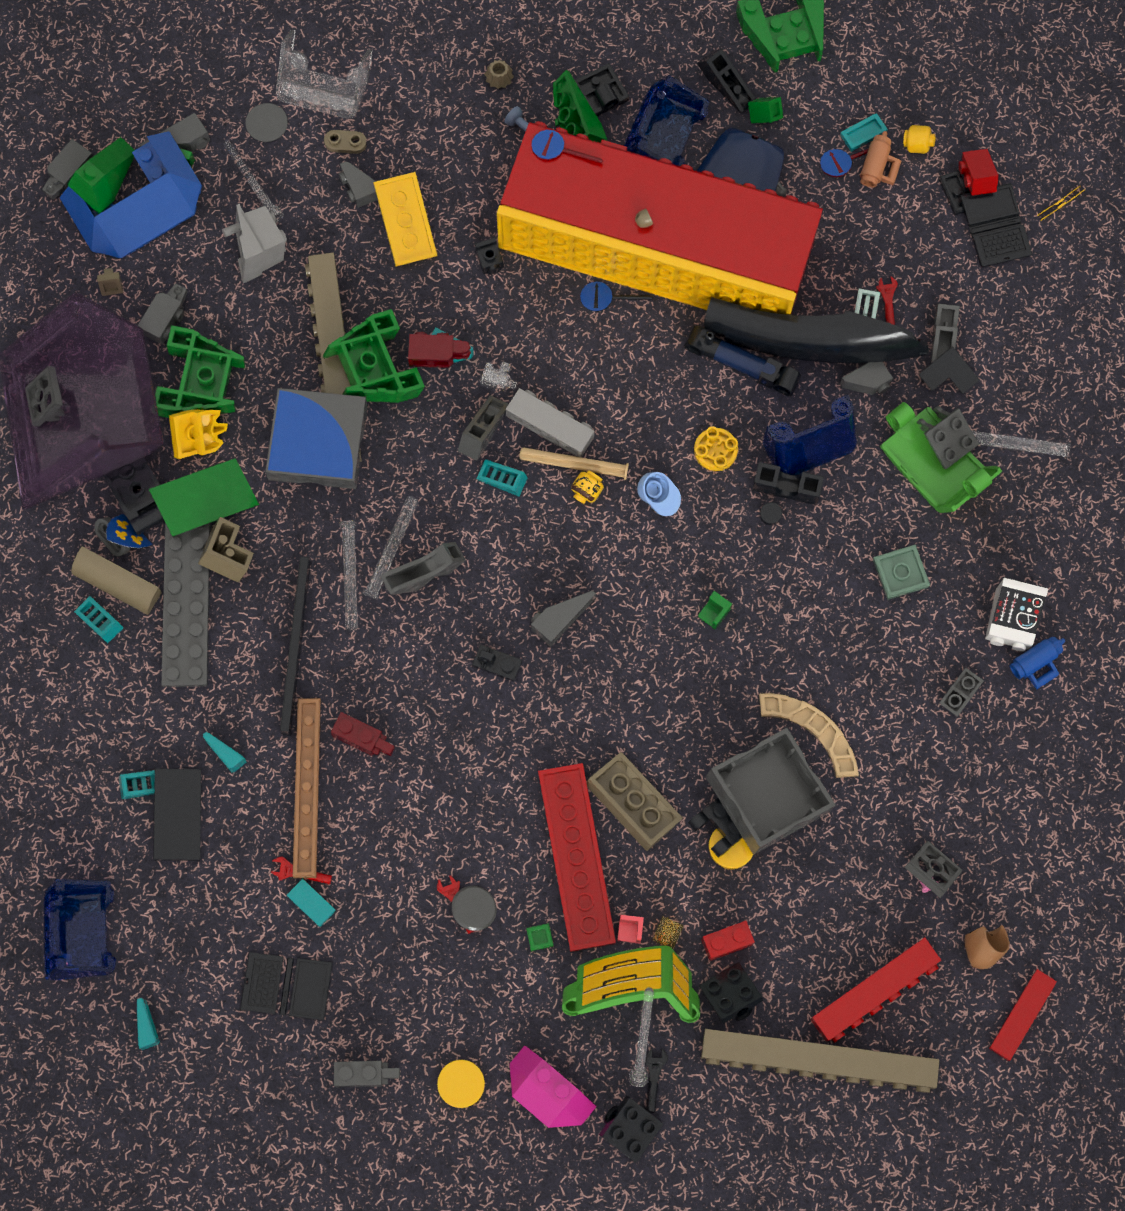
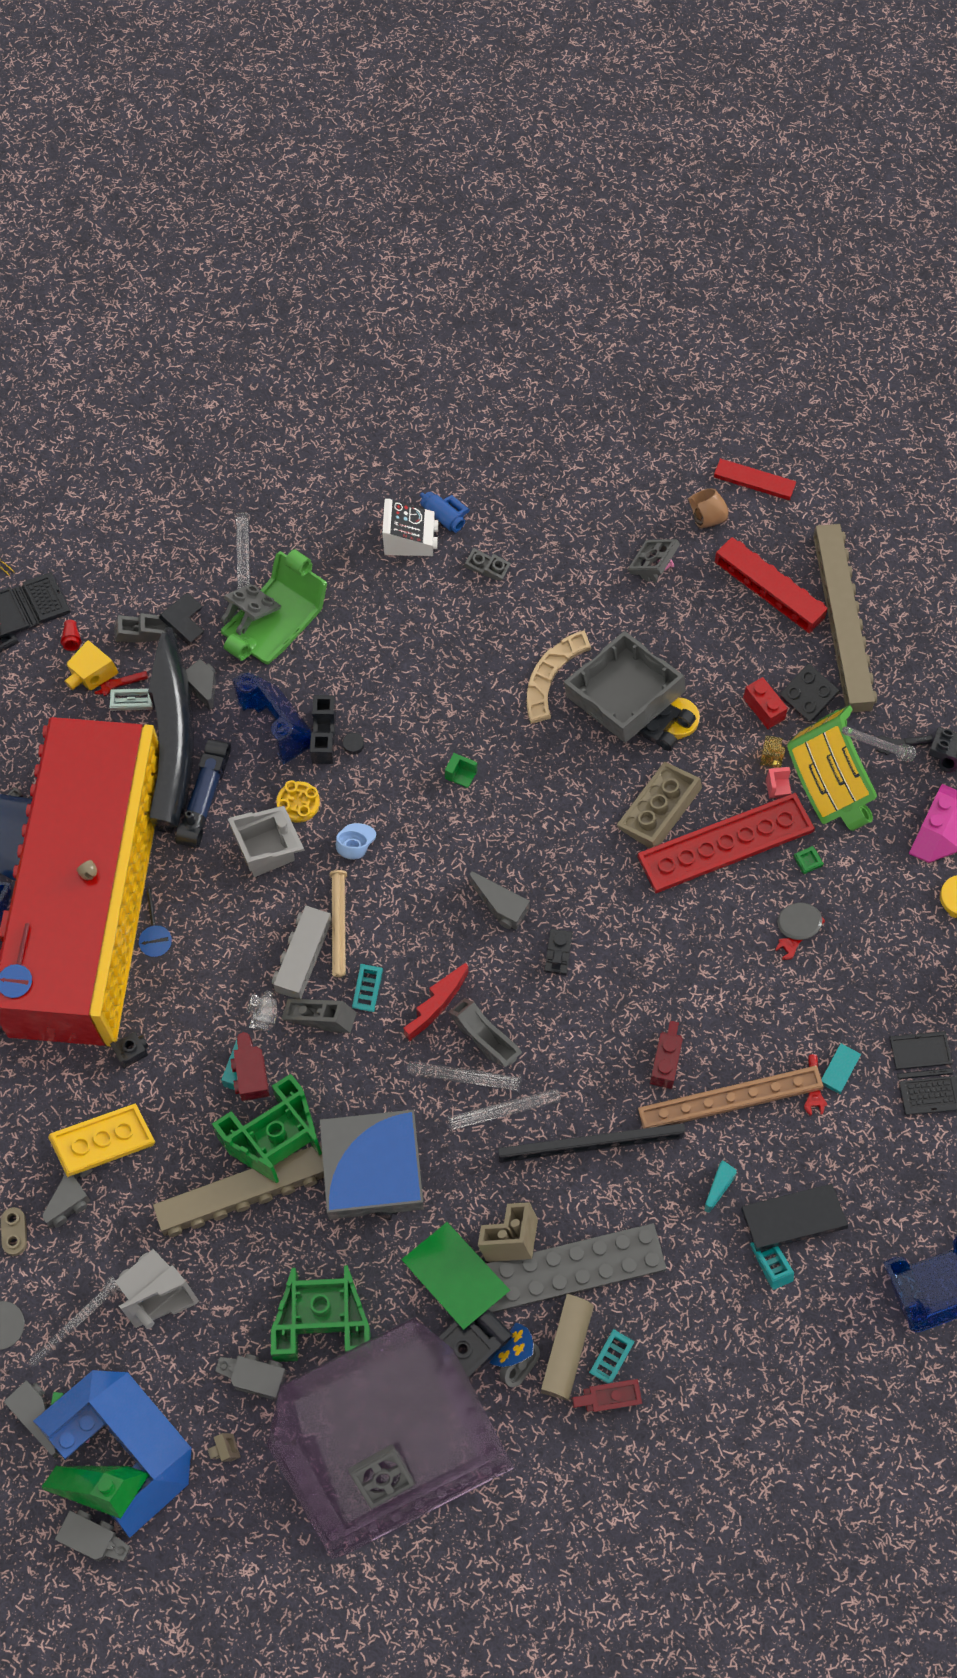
camera: 100 degrees left, 10 degrees down
(63, 606) = (609, 1396): none -> dark red hinge
(196, 432) = (385, 1301): yellow plate -> none
(474, 540) = (441, 996): none -> red slope
(587, 487) = (362, 904): yellow head -> none
(670, 402) = (266, 839): none -> light grey piece
(901, 572) = (387, 627): sand green plate -> none
(907, 274) = (90, 667): none -> yellow torso
(949, 262) = (70, 637): none -> red cone

